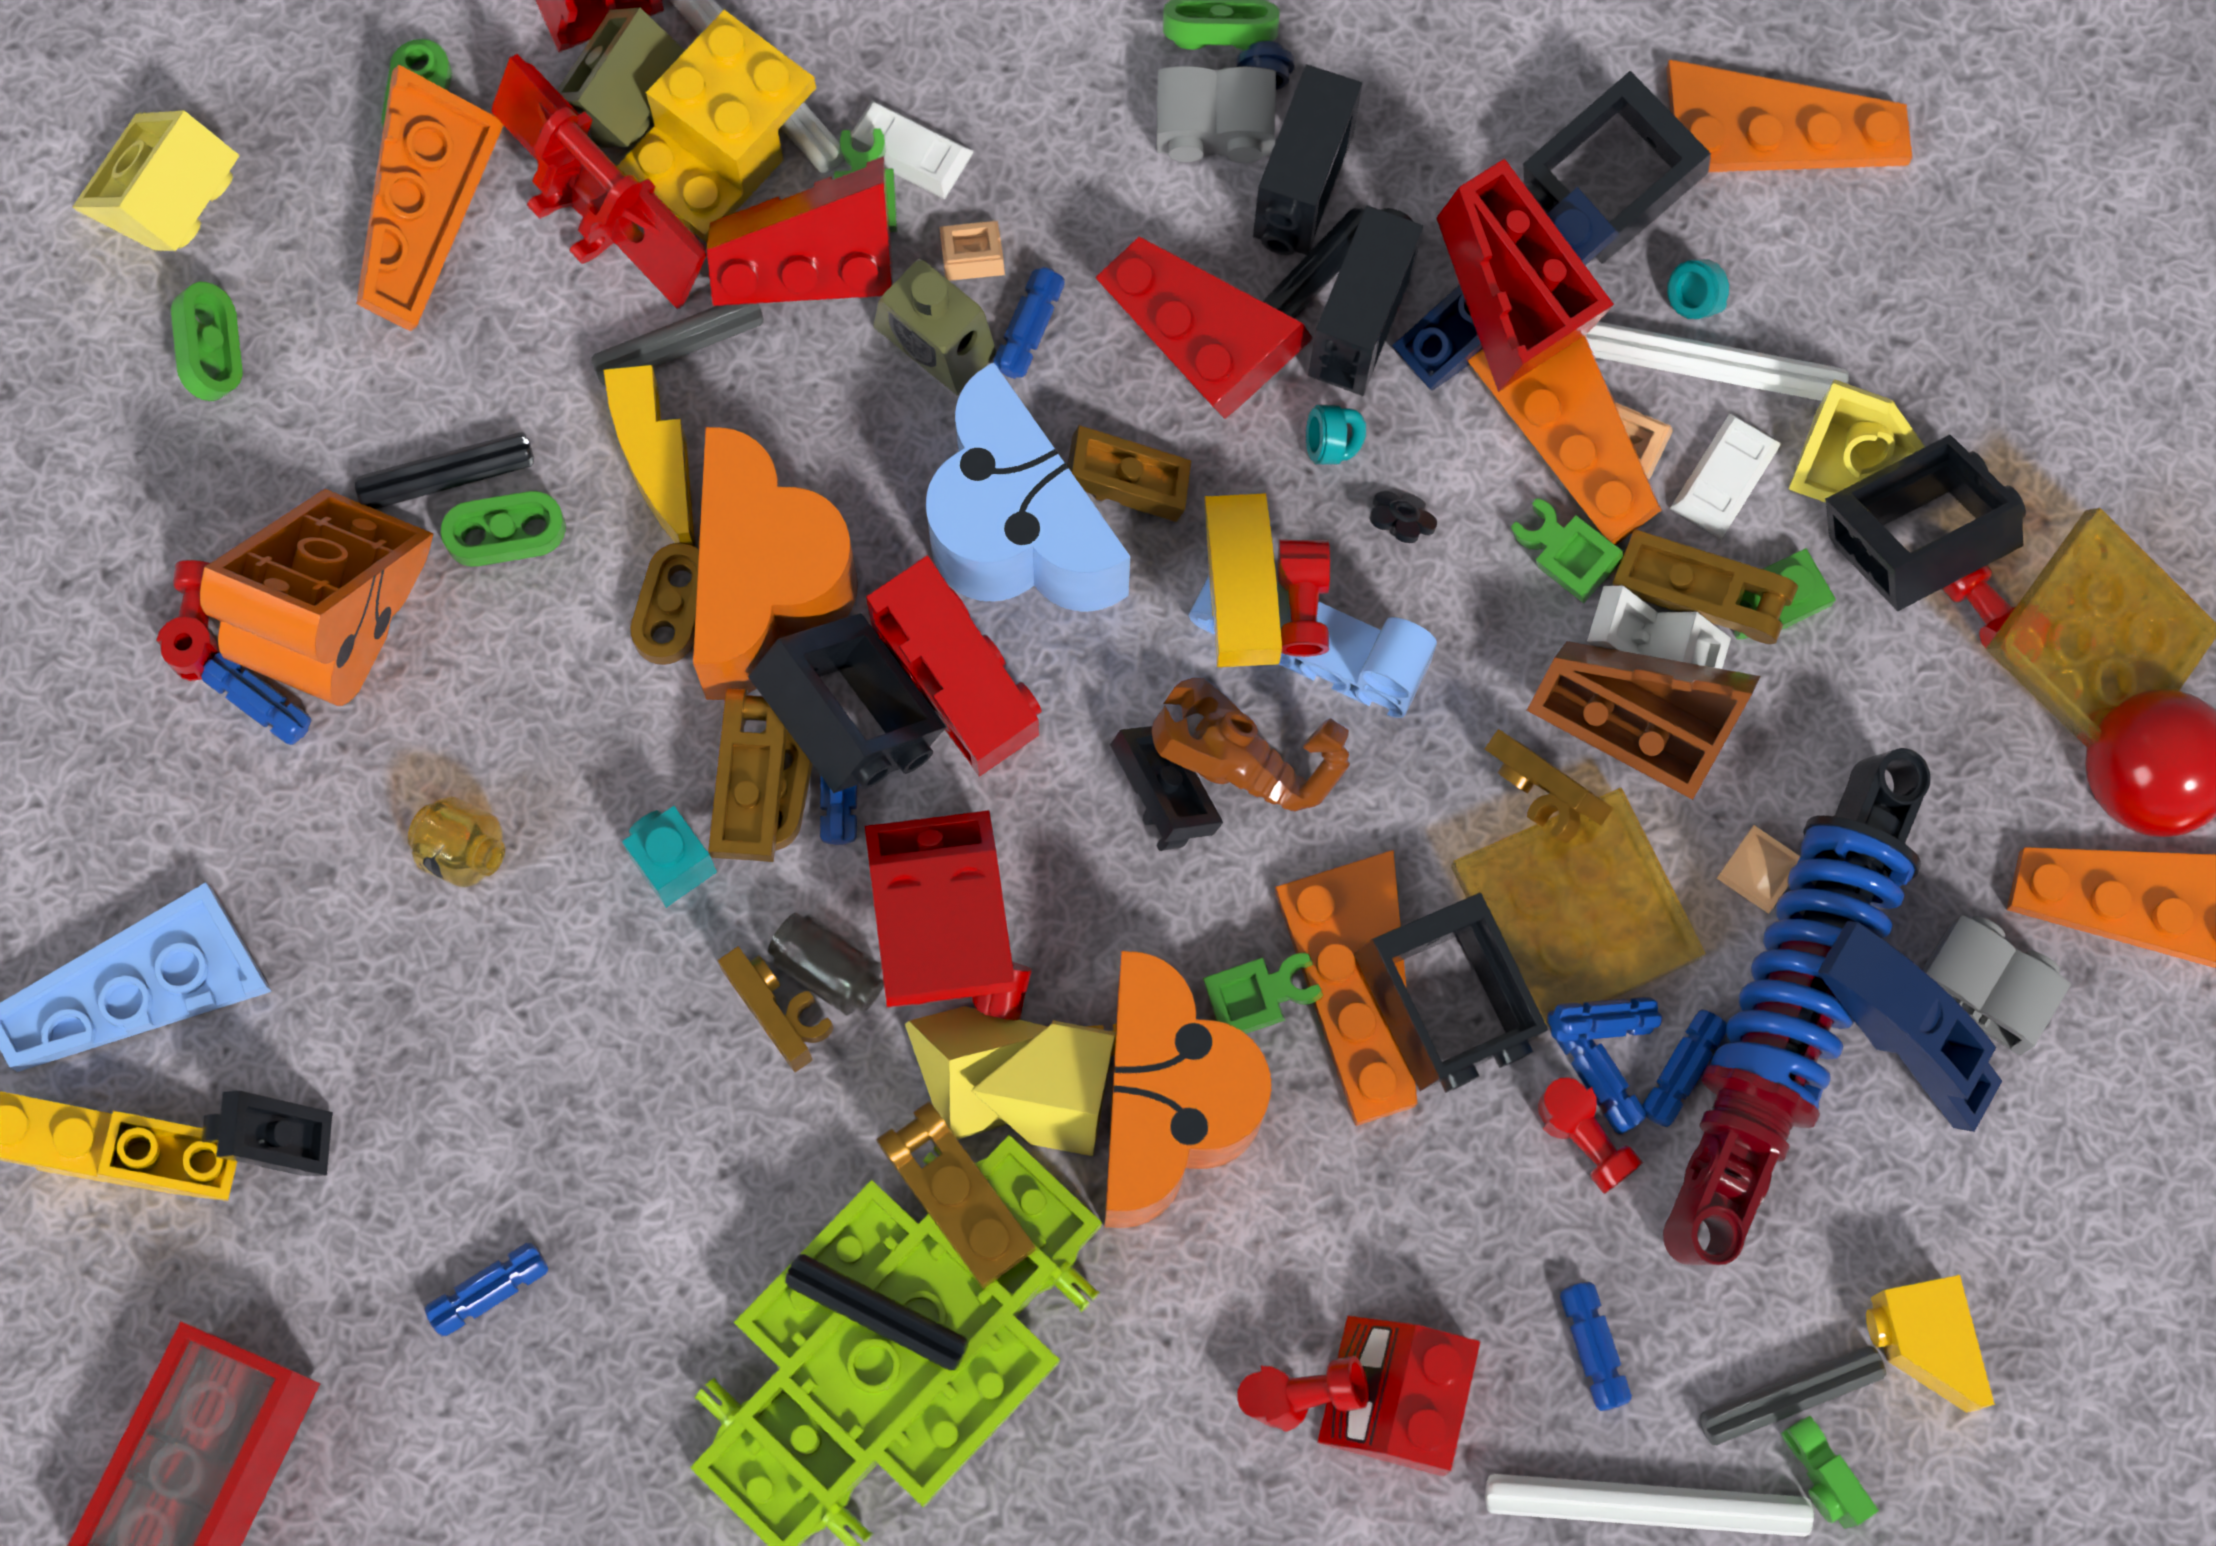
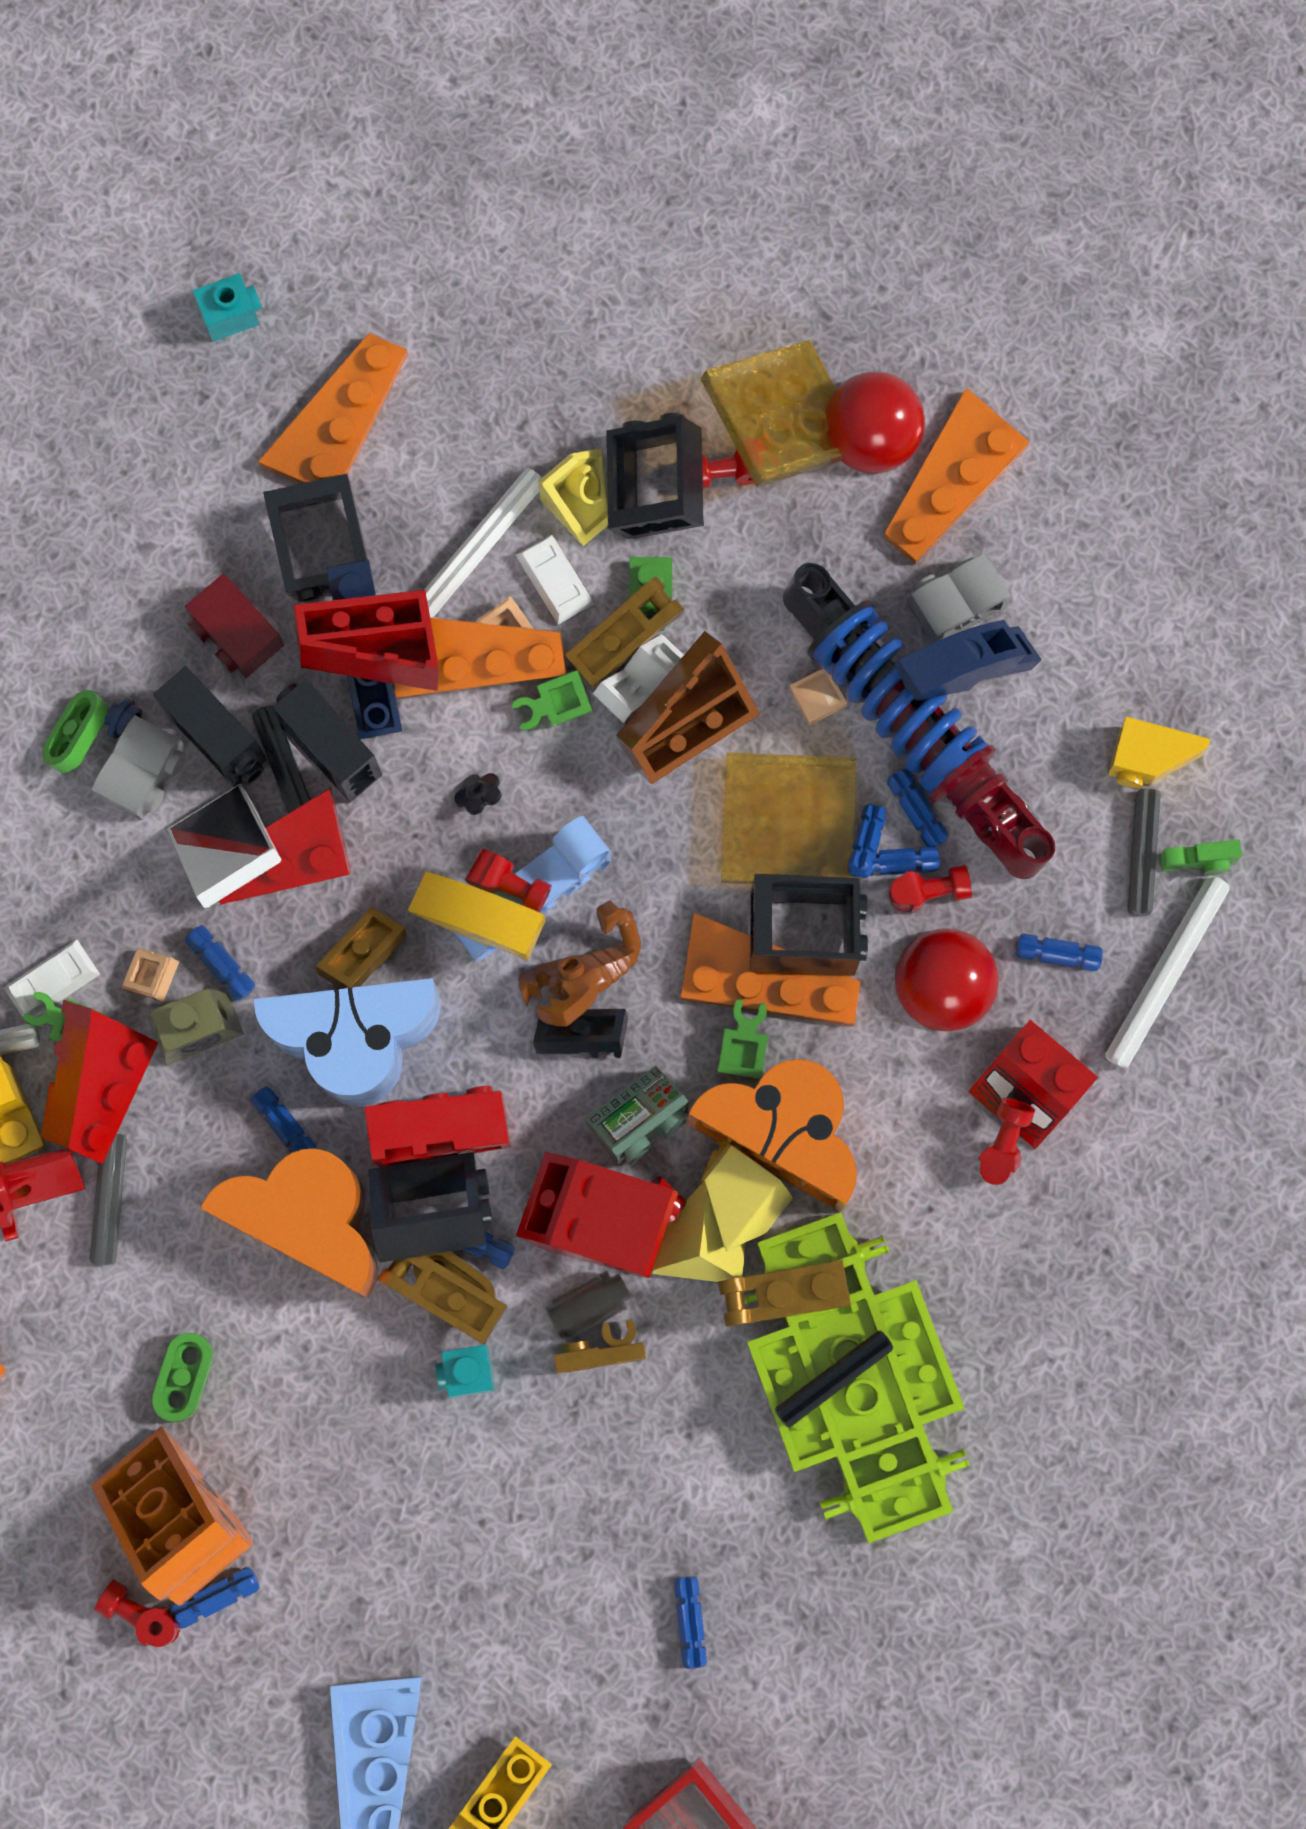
camera: 60 degrees left, 5 degrees up
(270, 1133) = (525, 1716): black plate -> none
(444, 471) = (119, 1398): black axle -> none
(456, 841) = (386, 1506): clear yellow head -> none
(652, 448) = (182, 1252): yellow slope -> none
(667, 605) = (293, 1291): pearl gold plate -> none
(872, 489) = (281, 1120): none -> blue axle
(1091, 905) = (638, 1116): none -> sand green slope
(1164, 238) = (223, 846): none -> tile
(1328, 434) = (401, 811): teal tile -> none
(1449, 130) = (233, 626): none -> dark red brick
(1480, 1217) = (946, 979): none -> red piece
(1526, 769) = (687, 802): pearl gold plate -> none
(1698, 289) = (425, 529): teal tile -> none

